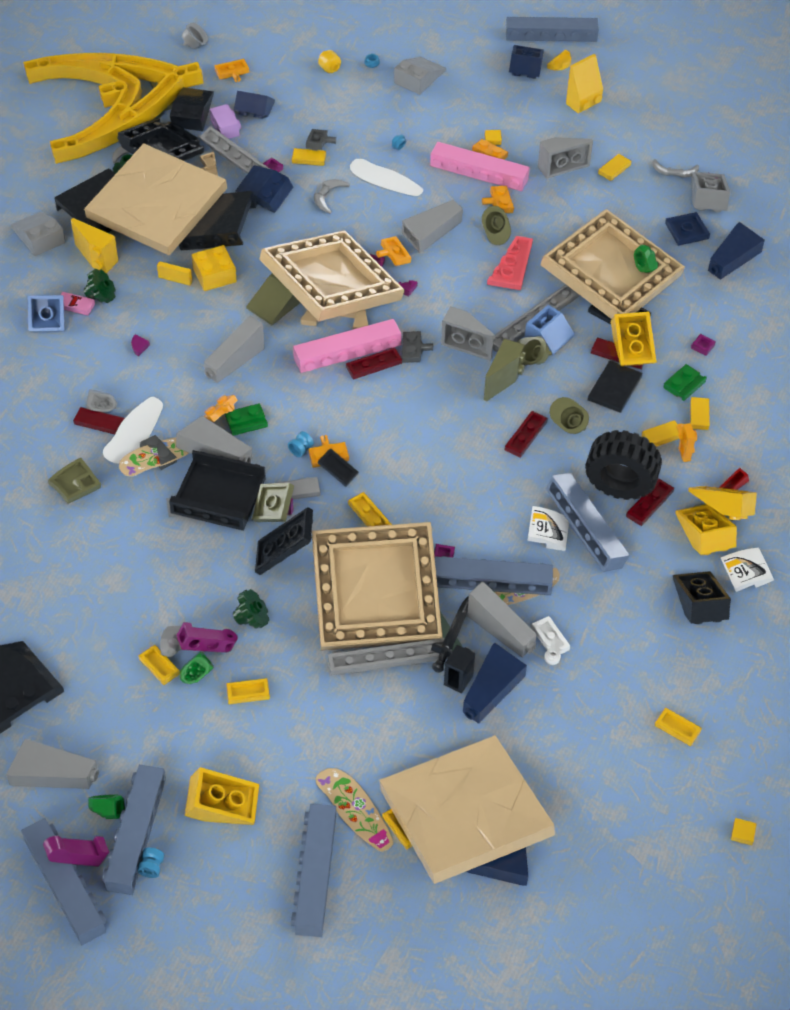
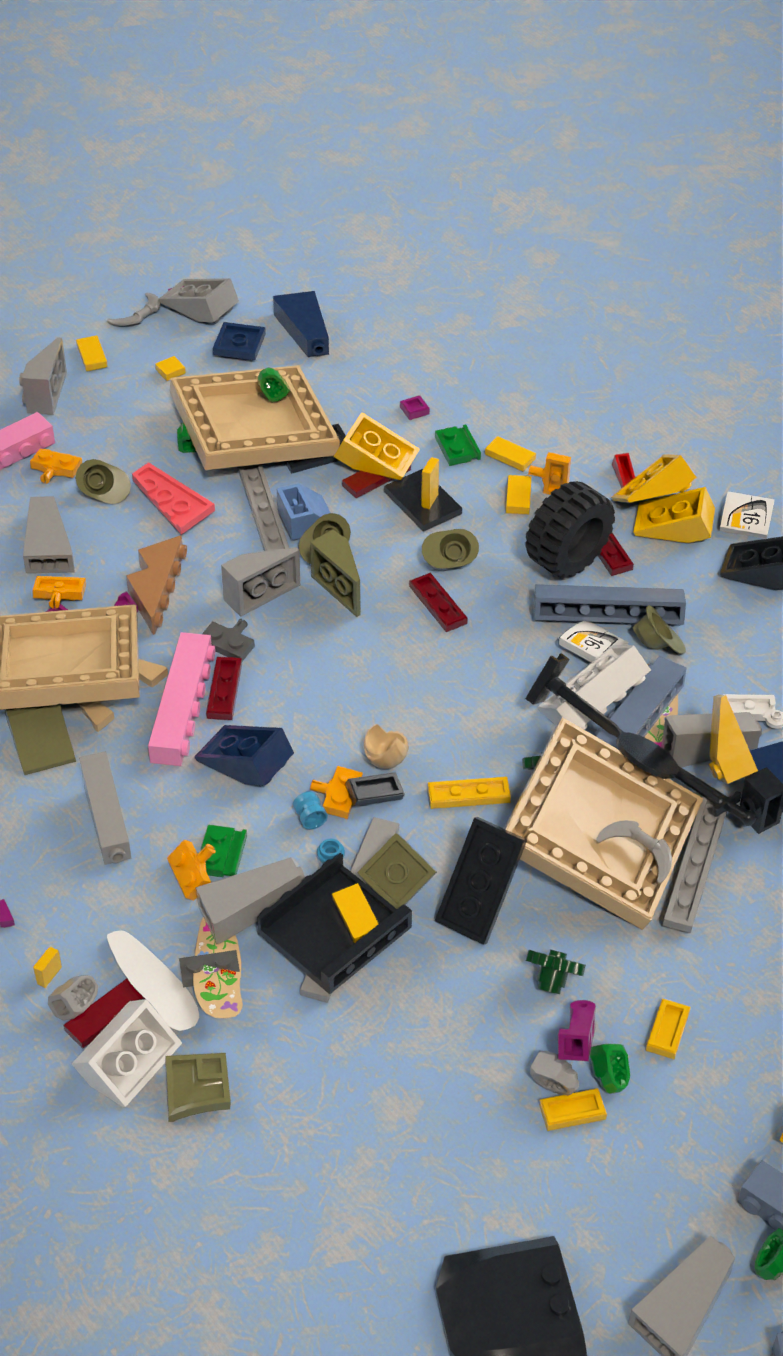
camera: 60 degrees left, 5 degrees down
(76, 440) = (127, 1052): none -> white slope
(113, 381) = (47, 967): none -> yellow tile
(231, 494) = (355, 911): none -> yellow tile
(277, 468) = (329, 846): none -> dark azure plate
(324, 396) = (247, 753): none -> dark blue slope
(372, 456) = (385, 748): none -> tan hair
(374, 624) = (658, 847): none -> light grey piece
(430, 291) = (156, 580): none -> medium nougat slope
(448, 583) = (634, 747): none -> black piece
(480, 622) = (728, 747): none -> yellow slope
(495, 541) = (599, 684): none -> white slope
(582, 560) = (657, 633): none -> olive piece
(616, 377) = (430, 483): none -> yellow tile
(633, 209) = (170, 368): none -> yellow tile

